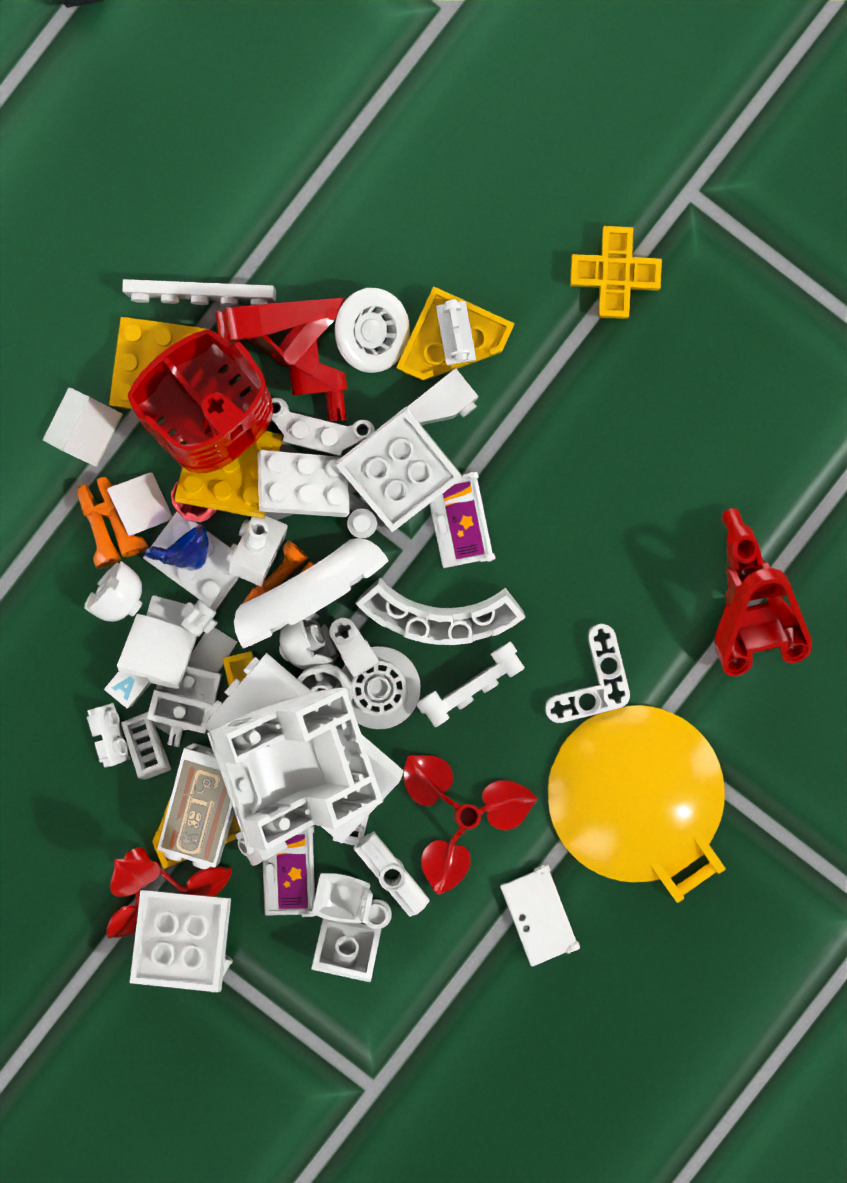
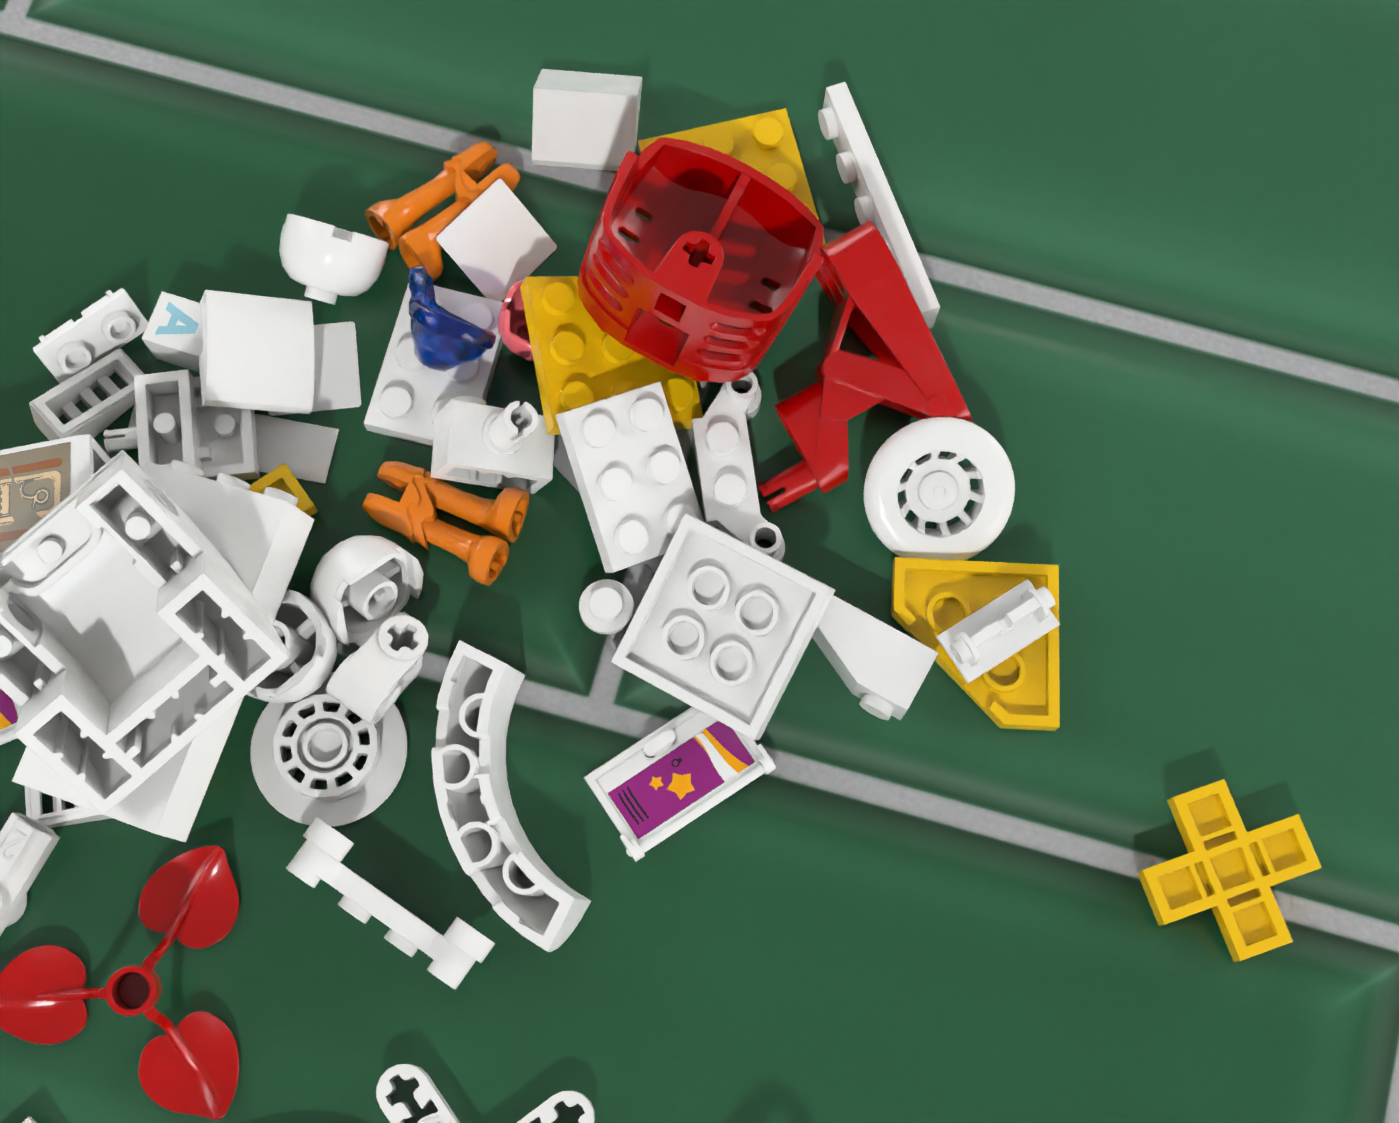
camera: 65 degrees right, 15 degrees down
(198, 618) = (339, 400): white gear -> none
(307, 591) = (453, 553): white brick -> none

